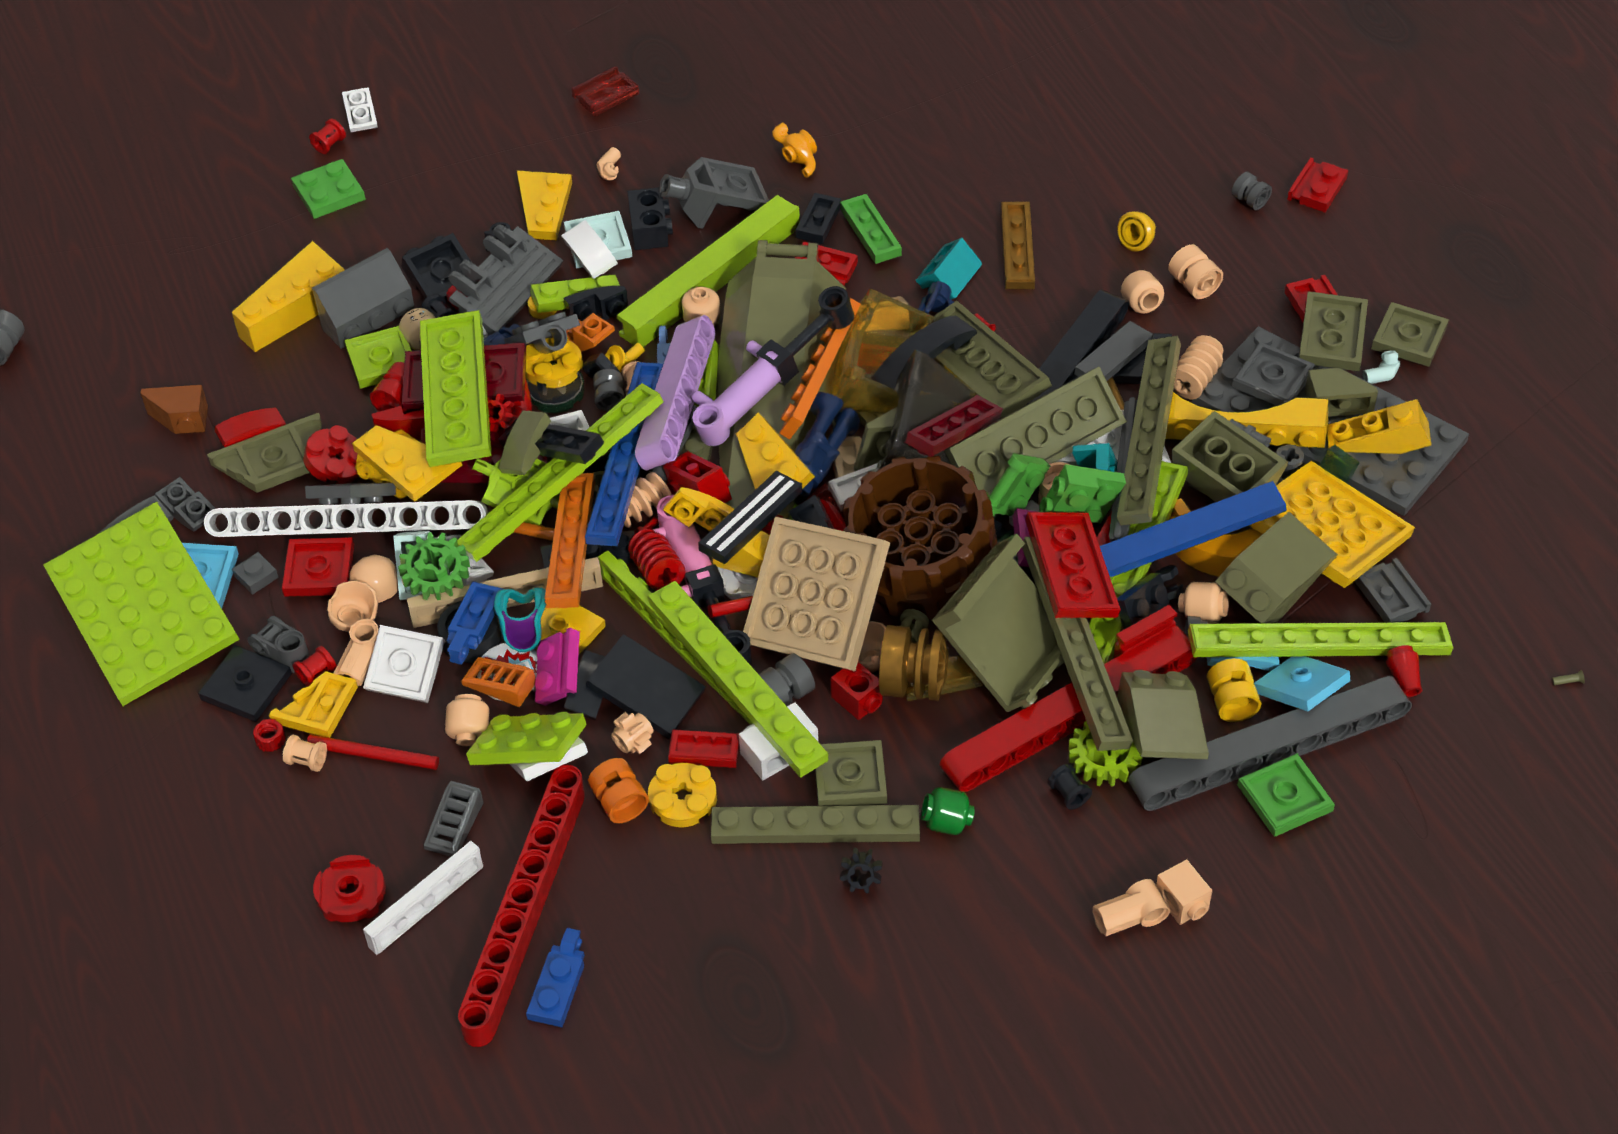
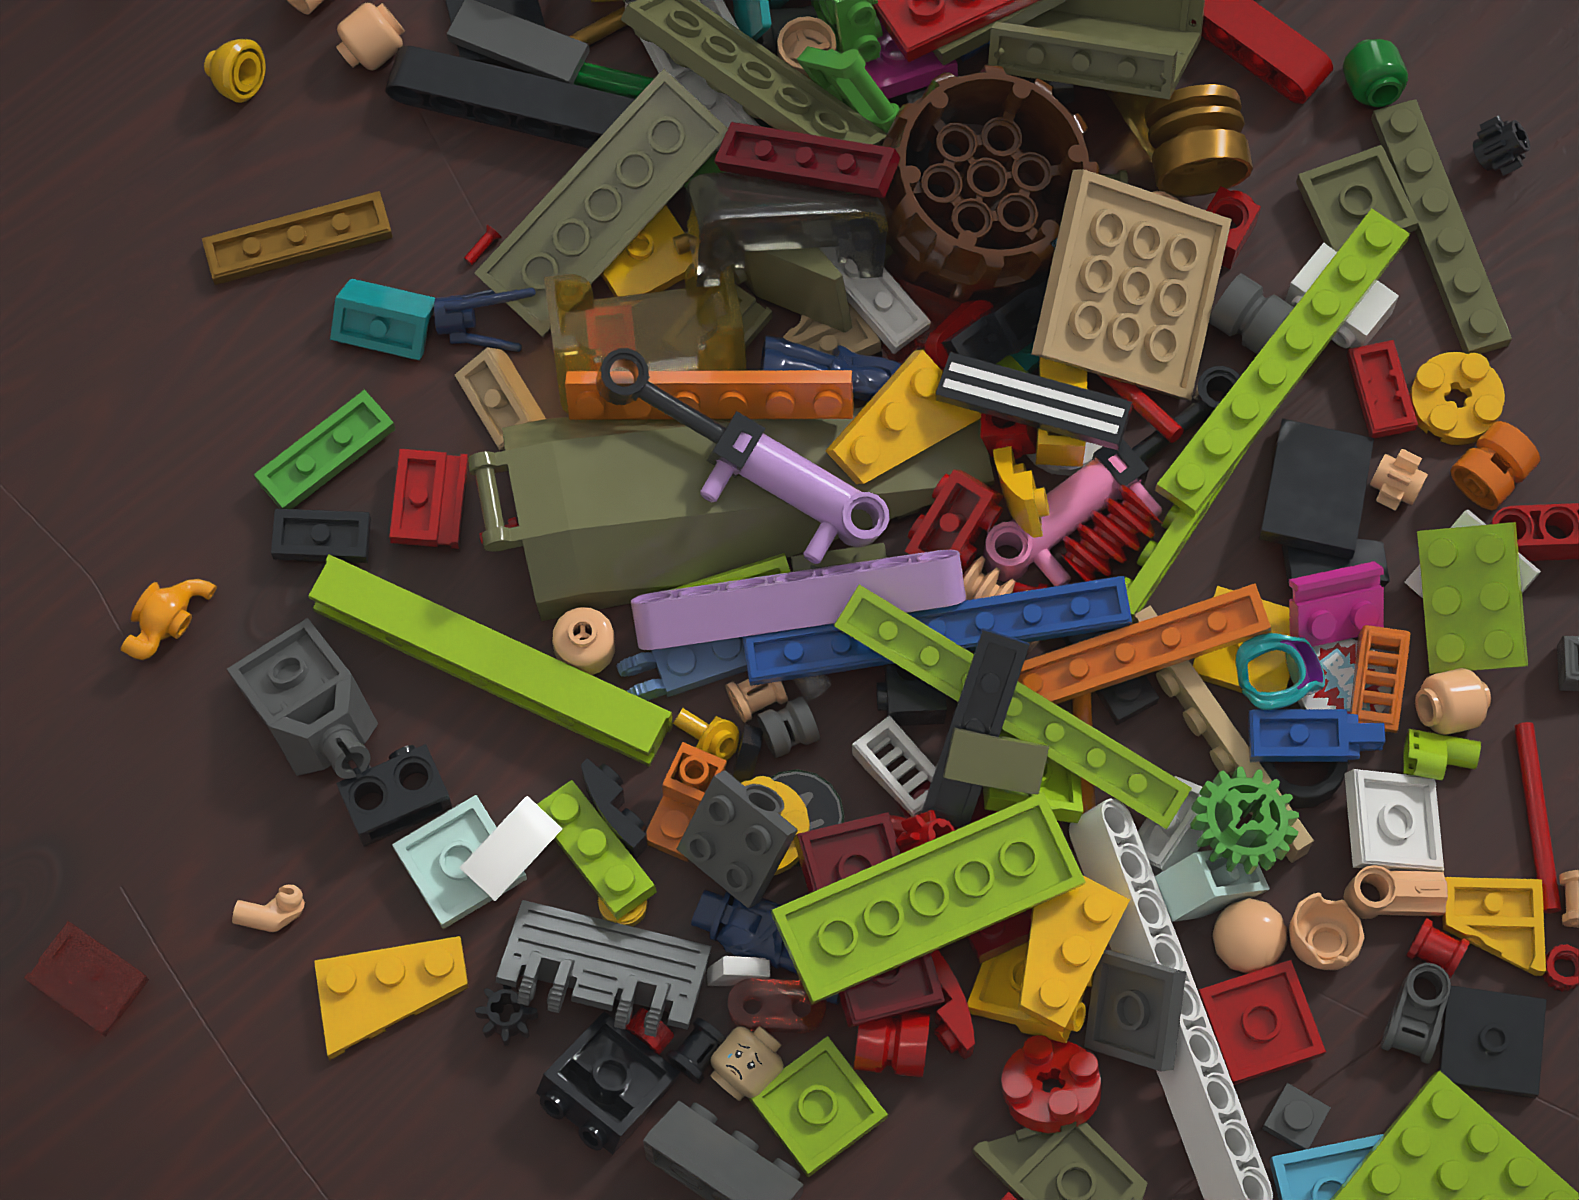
camera: 110 degrees left, 20 degrees up
(436, 697) = (1431, 752): none -> lime piece
(931, 340) = (624, 277): black slope -> none

